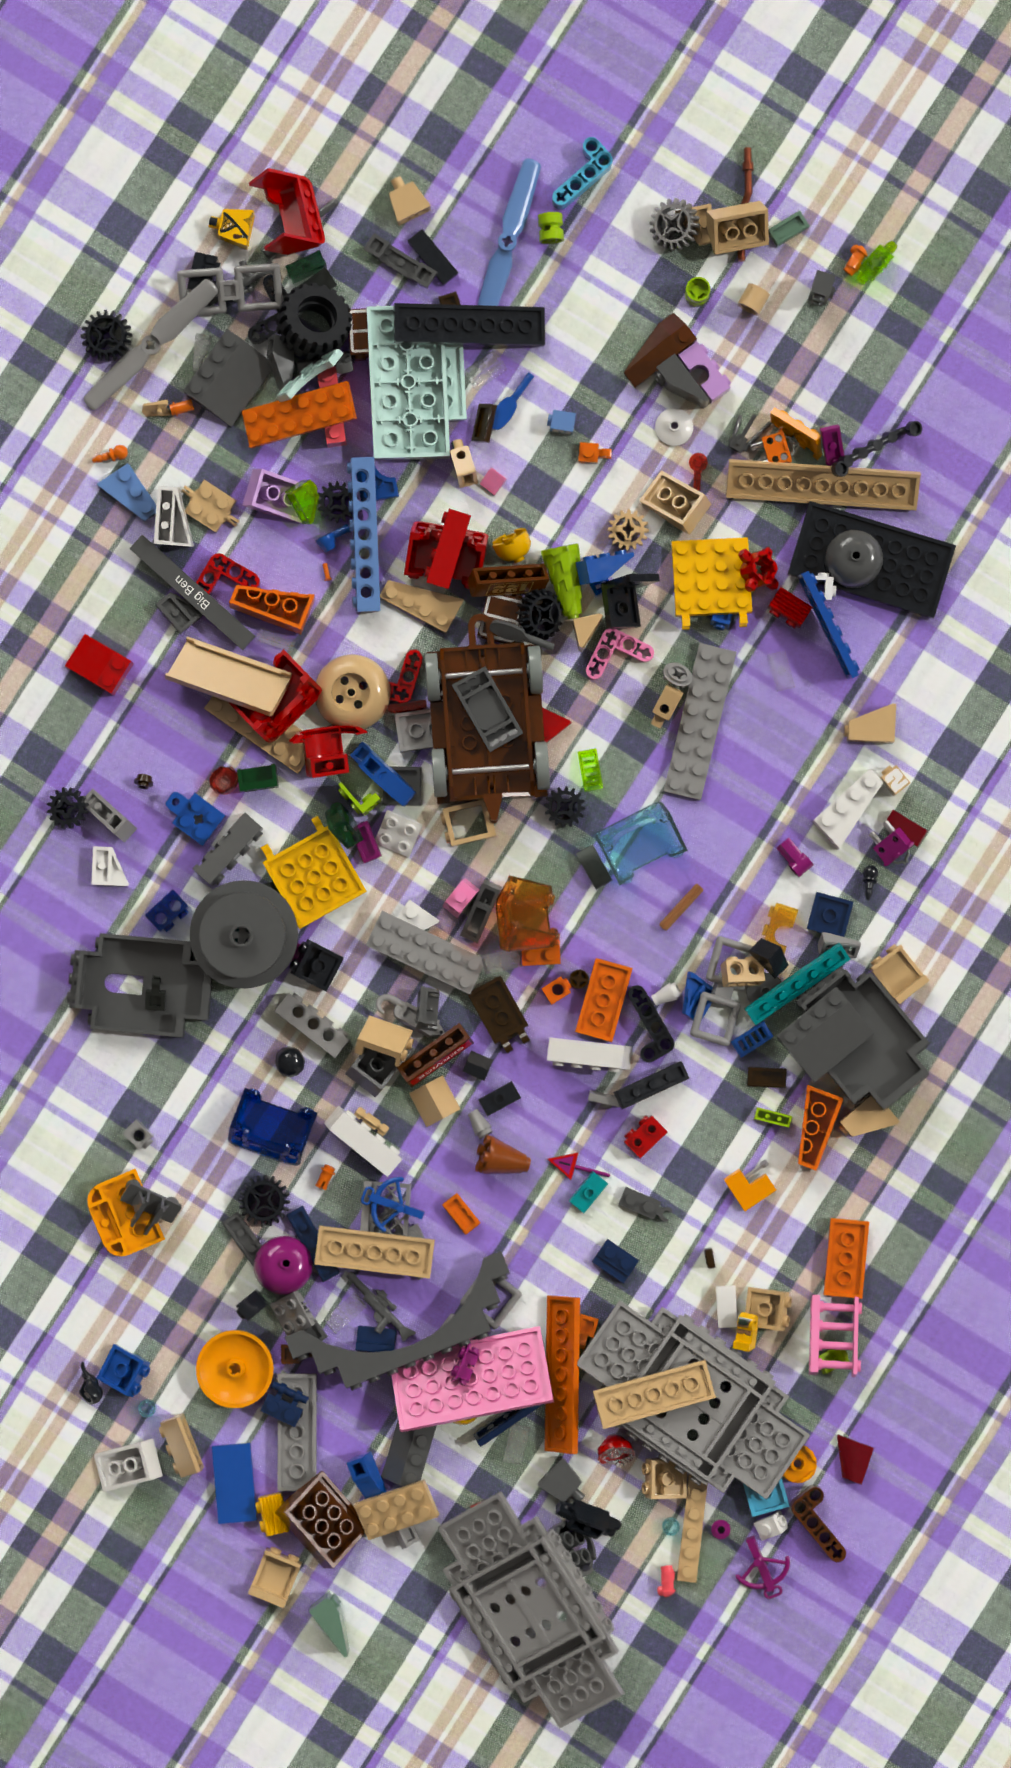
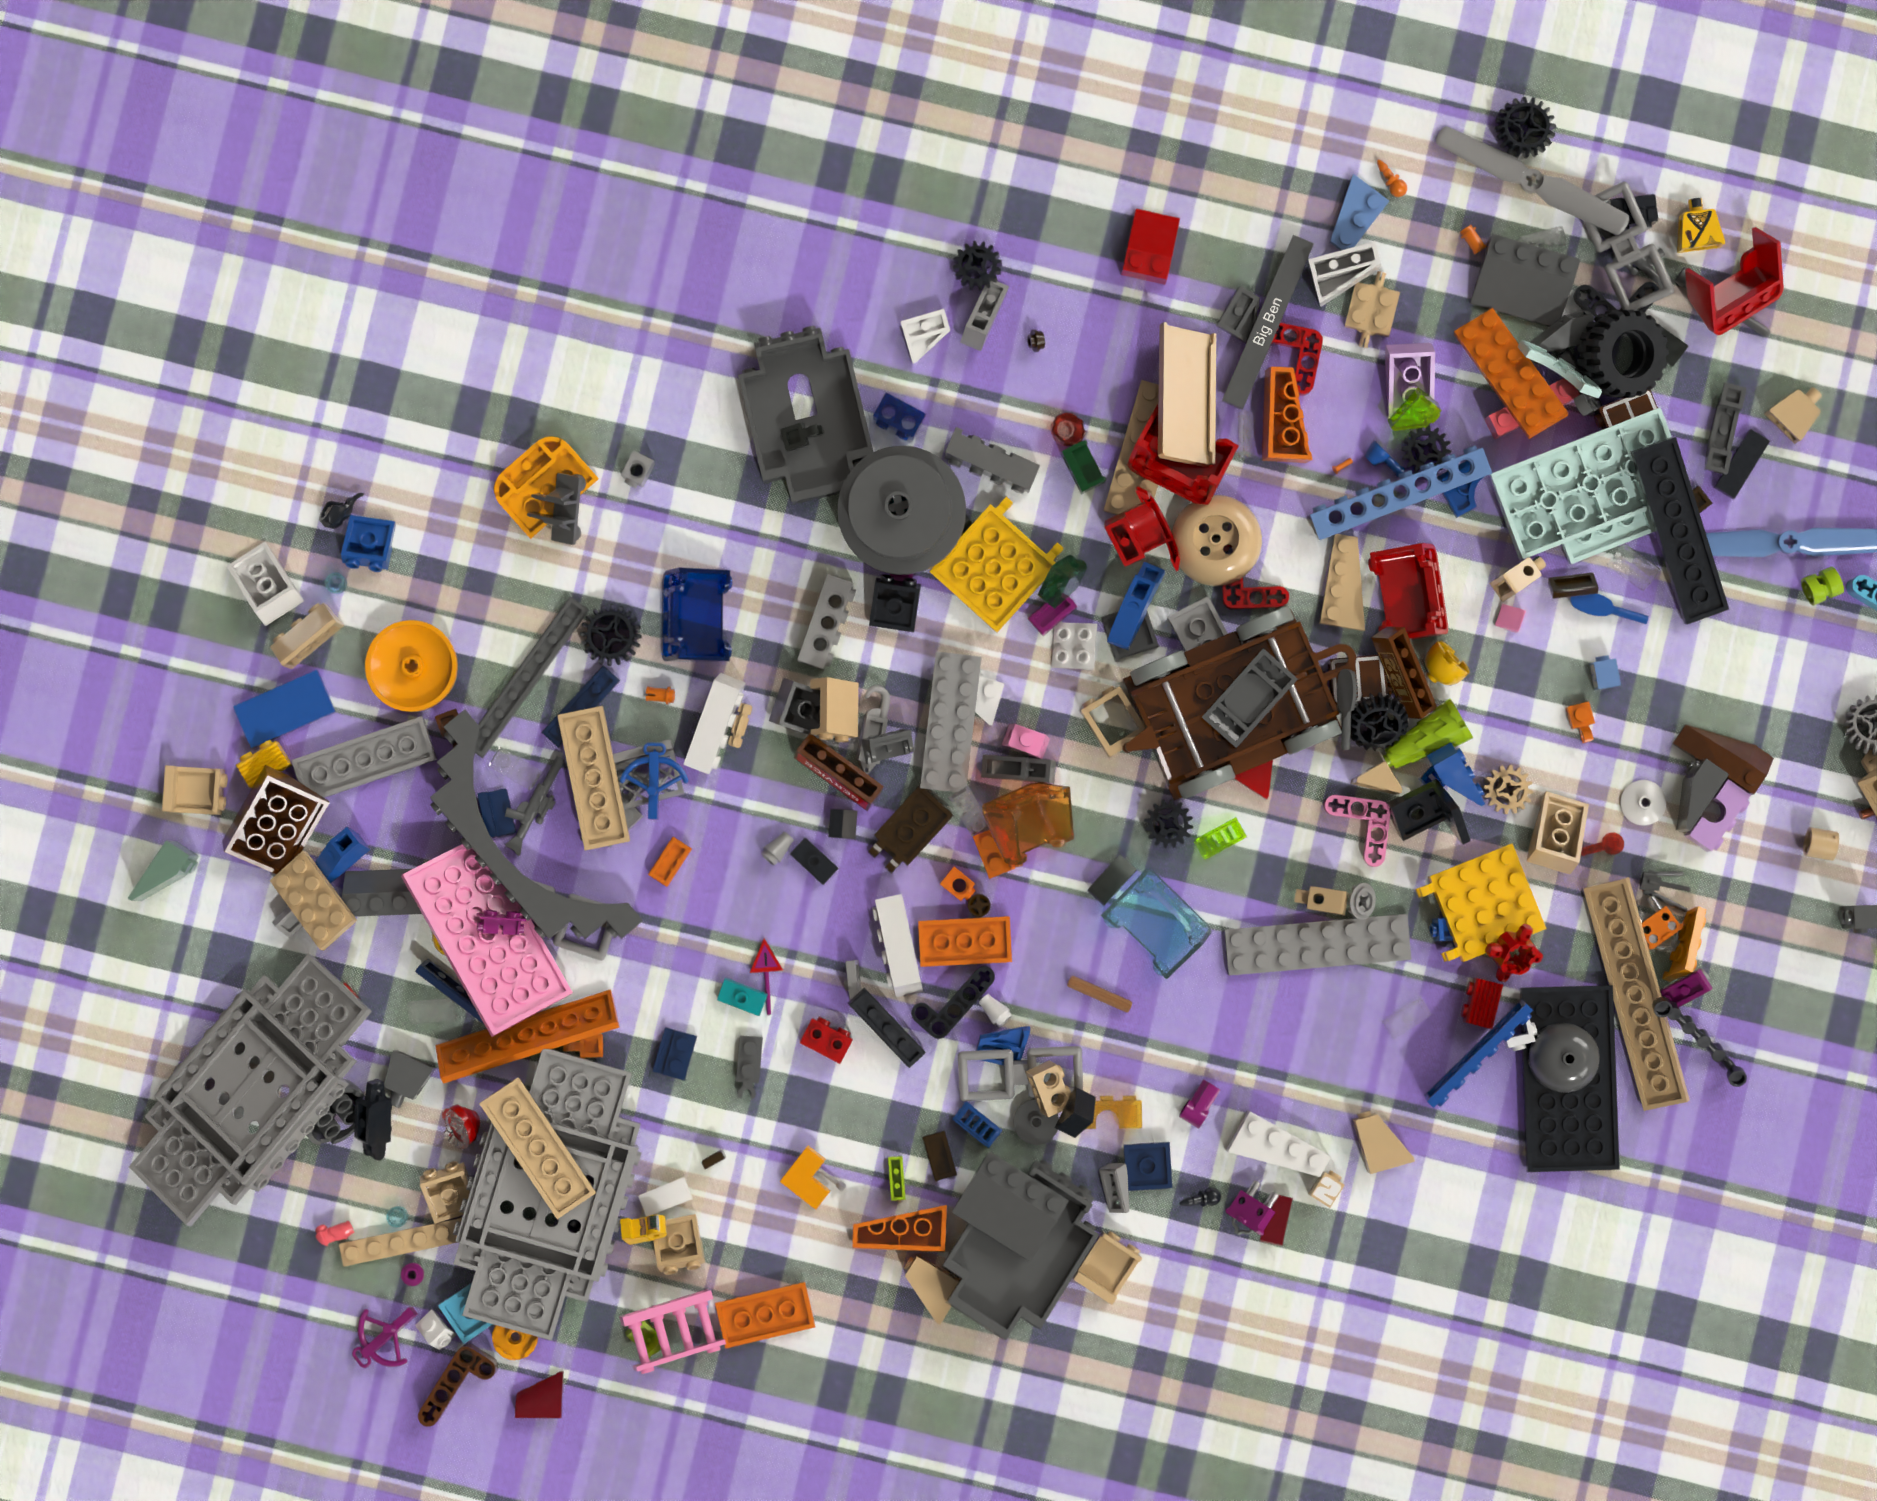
camera: 65 degrees right, 0 degrees up
(156, 409) = (1461, 211): tan piece -> none
(195, 806) = (1016, 399): blue plate -> none
(251, 1305) = (488, 660): black slope -> none
(272, 1273) = (530, 673): magenta cylinder -> none
(282, 1409) = (383, 734): dark blue plate -> none
(289, 1061) = (776, 611): black hair -> none
(292, 1314) = (494, 709): light grey hinge -> none
(306, 267) = (1680, 324): clear green hinge -> none
(369, 801) = (1096, 601): lime bracket -> none
(407, 706) = (1221, 607): clear red tile -> none
(434, 1101) = (786, 789): tan slope -> none
(448, 548) = (1416, 592): red wedge -> none
(500, 1158) = (747, 884): dark orange cone -> none
(697, 291) = (1807, 776): lime wheel -> none
(797, 983) = (1057, 1155): teal plate -> none

